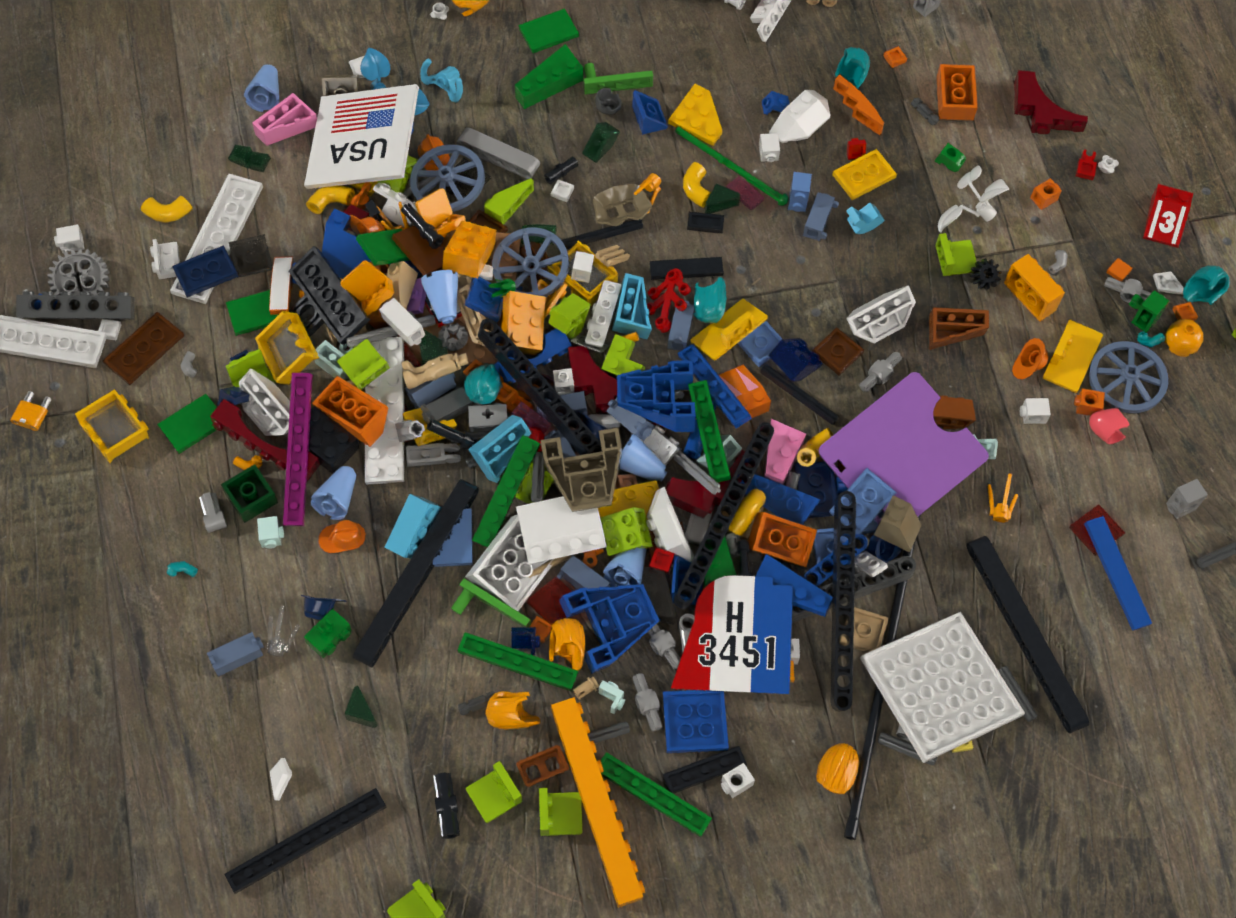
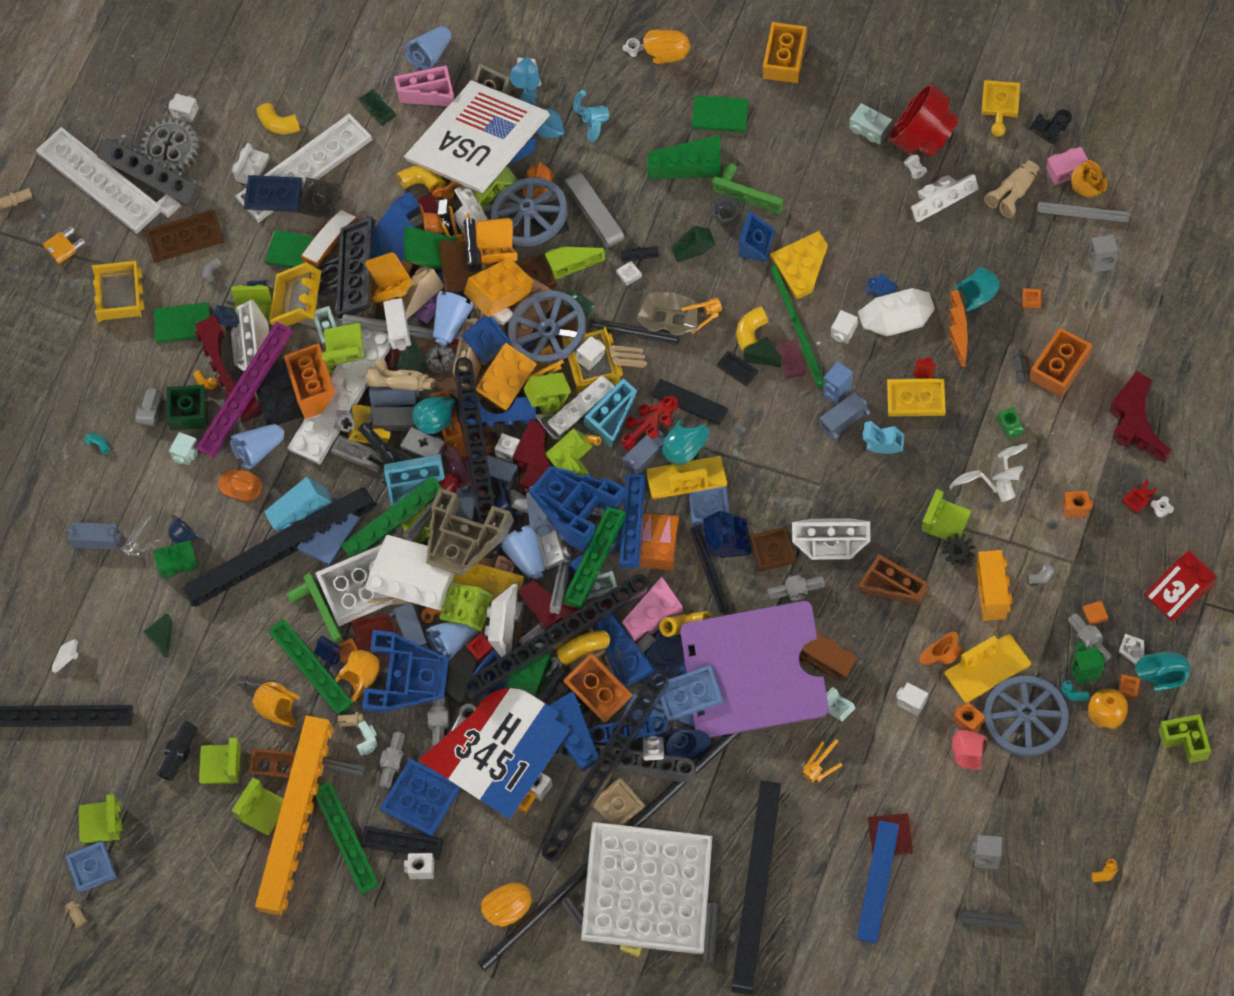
camera: 40 degrees right, 0 degrees up
(506, 285) = (508, 336): green piece -> none
(899, 524) = (703, 728): dark tan slope -> none

